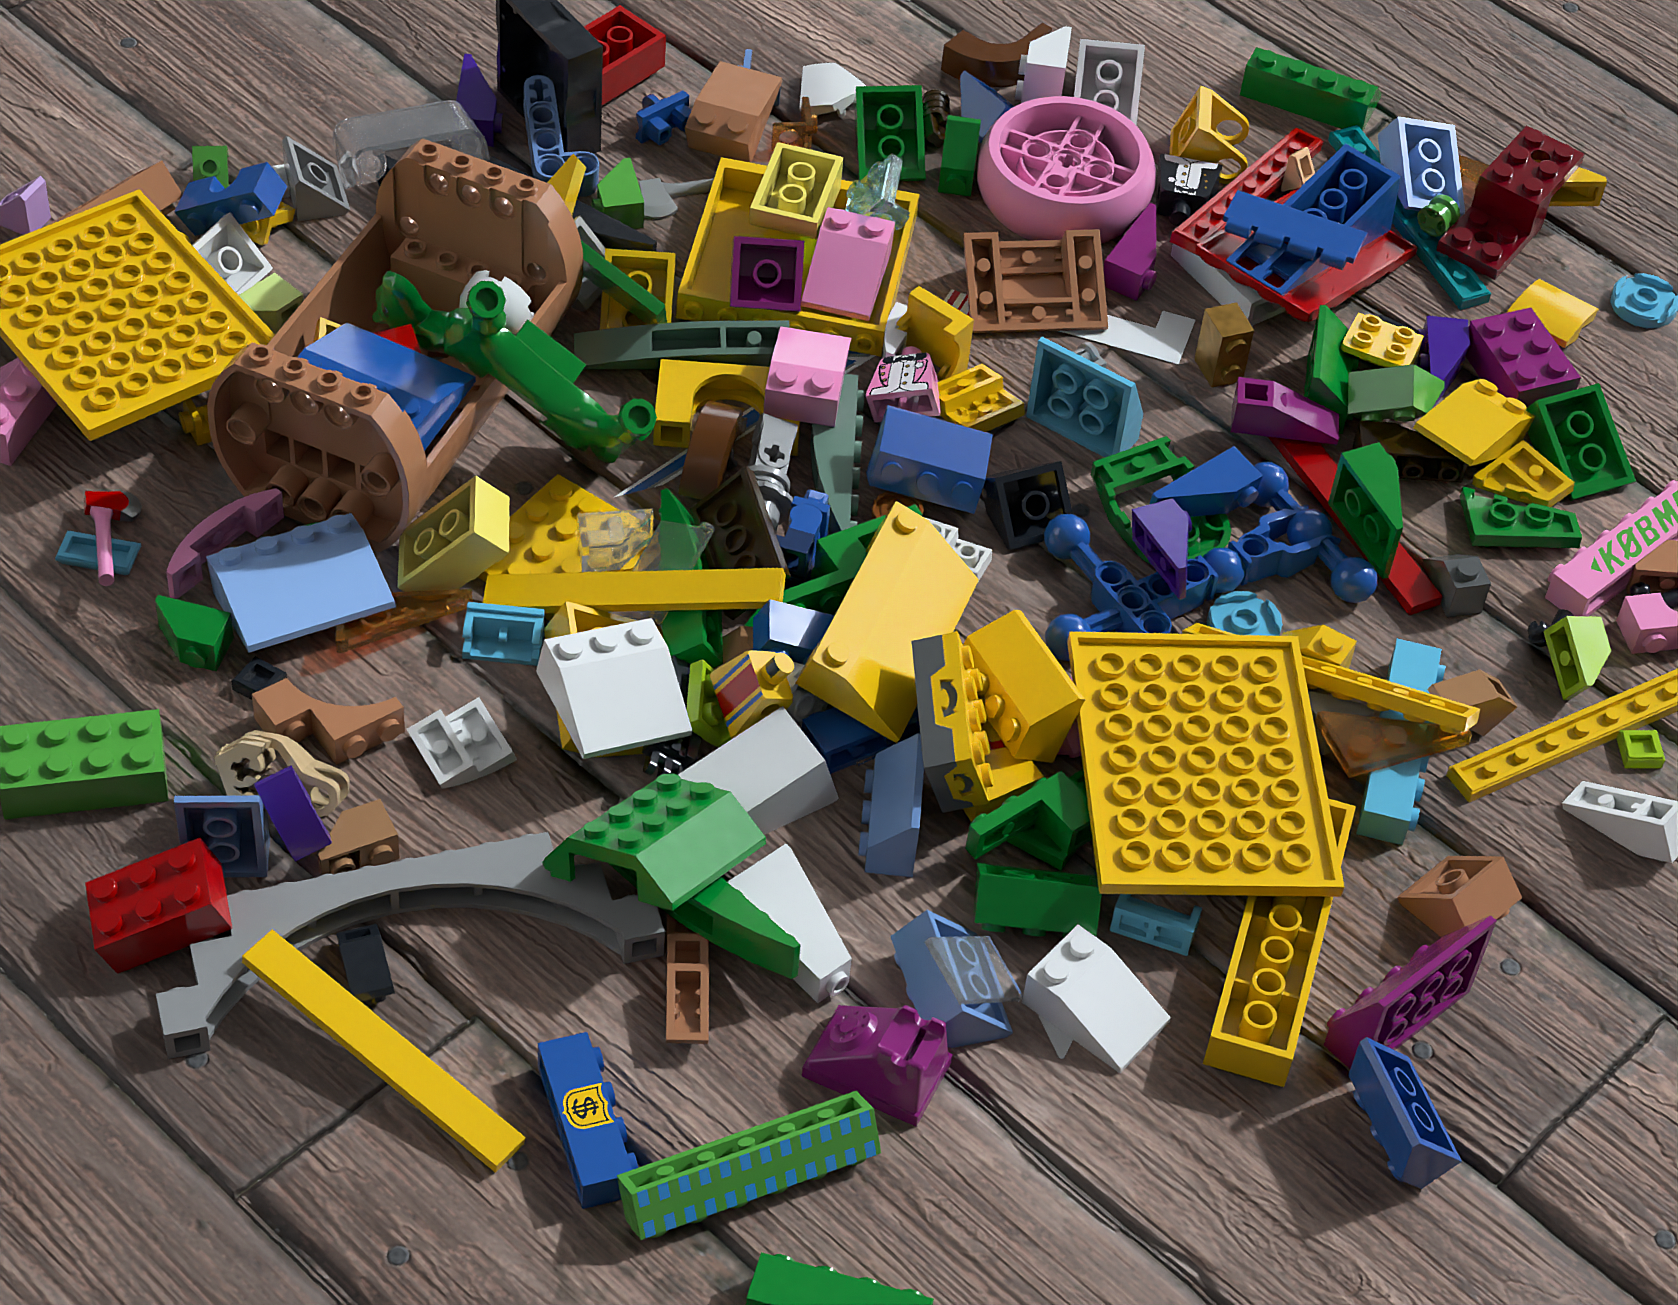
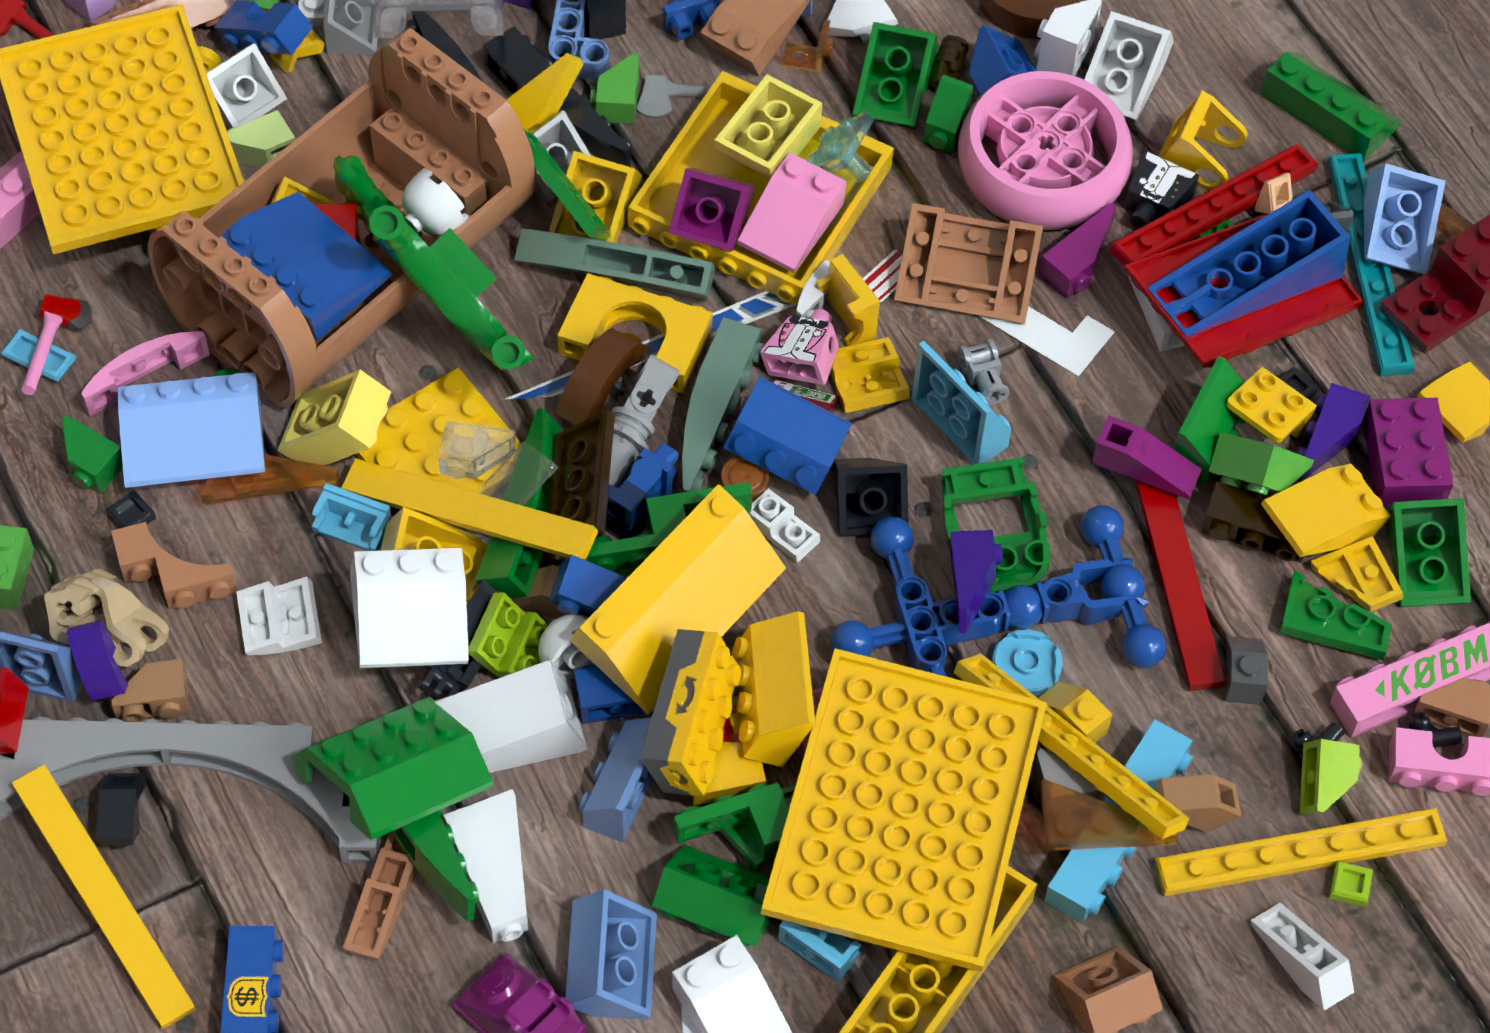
camera: 20 degrees right, 10 degrees up
(752, 688) = (531, 636): yellow torso -> none
(806, 376) = (706, 322): bright pink slope -> none
(974, 969) = (628, 954): clear piece -> none
(1214, 486) = (1040, 524): blue slope -> none
(1224, 344) = (1119, 372): pearl gold brick -> none
(1302, 230) = (1229, 273): blue windscreen -> none
(1369, 503) = (1182, 567): green slope -> none
(1438, 215) = (1392, 274): bright green wheel -> none

